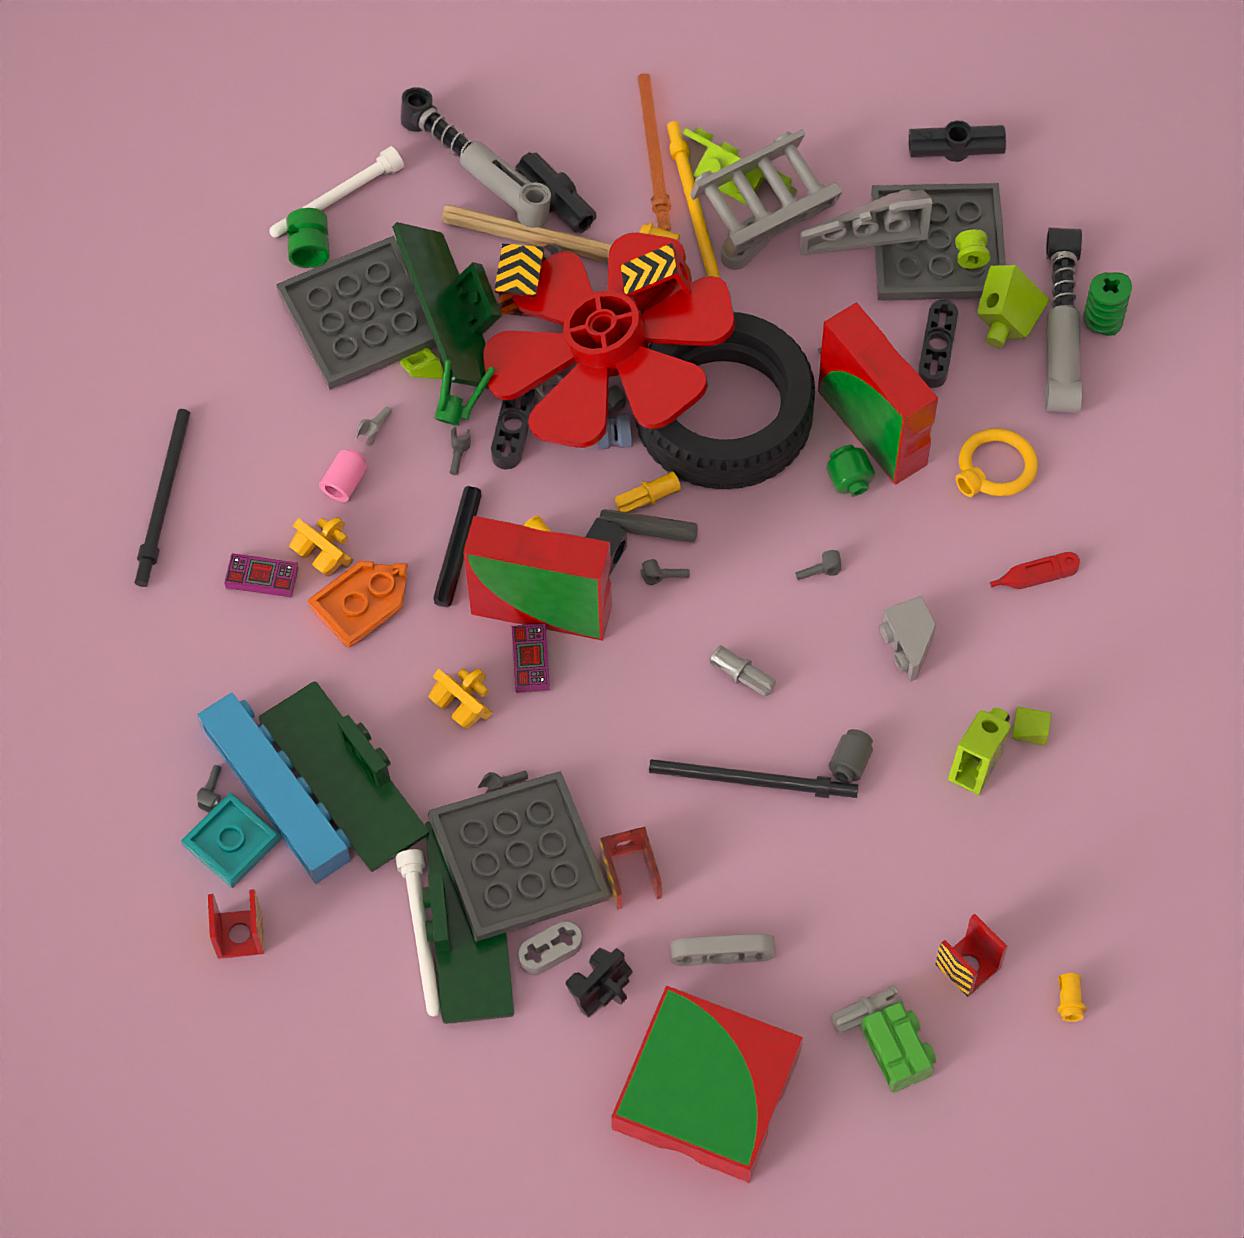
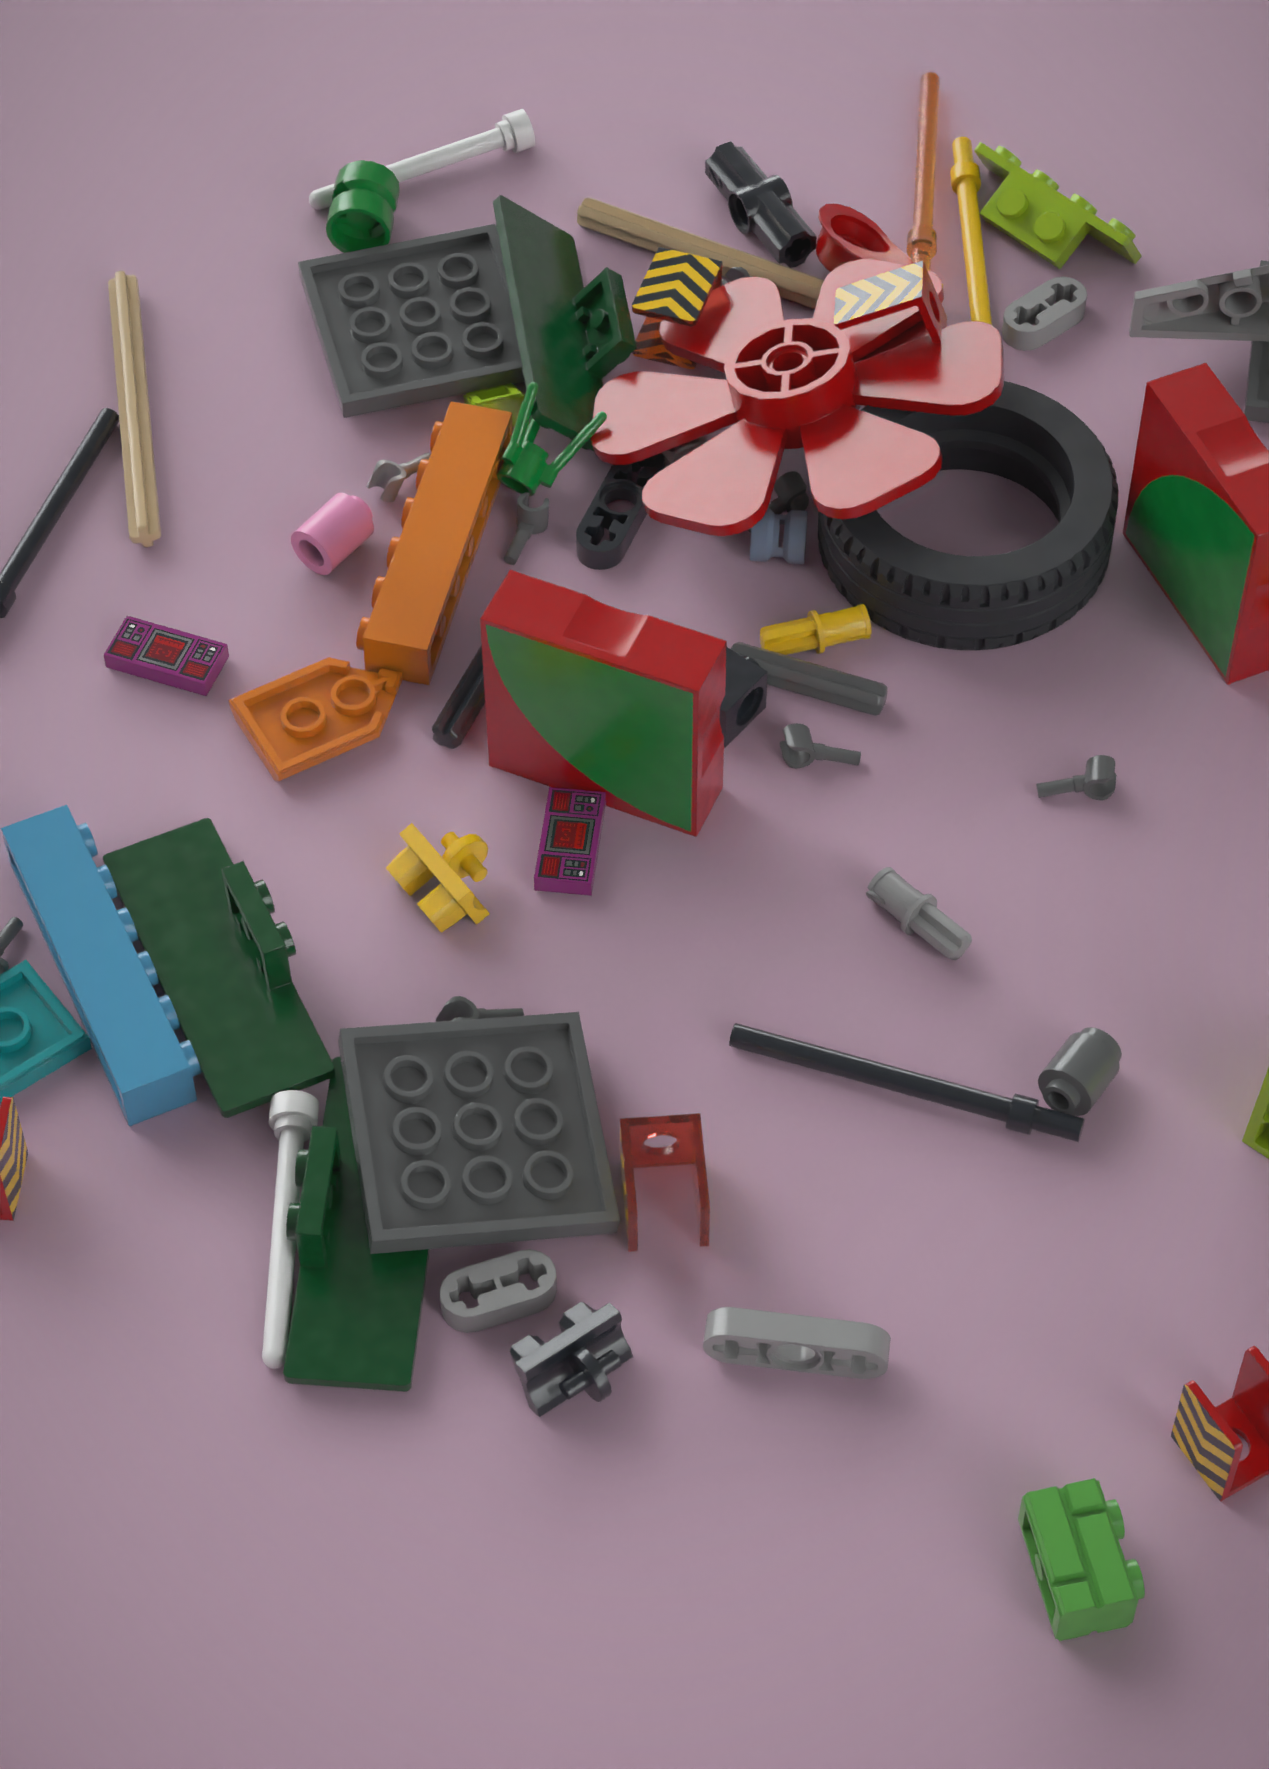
camera: 10 degrees right, 10 degrees down
(198, 405) = (134, 410): none -> tan axle
(331, 556) = (283, 642): yellow hips -> none
(409, 470) = (437, 543): none -> orange brick
(527, 198) = (711, 198): light grey piece -> none
(623, 215) = (853, 236): none -> red piece
(706, 1083) = (722, 1560): green tile -> none
(766, 223) = (1084, 282): light grey fence -> none
(850, 470) = (1154, 644): green head -> none
(852, 1015) = (1004, 1491): light grey axle -> none
(910, 632) = (1215, 900): light grey slope -> none

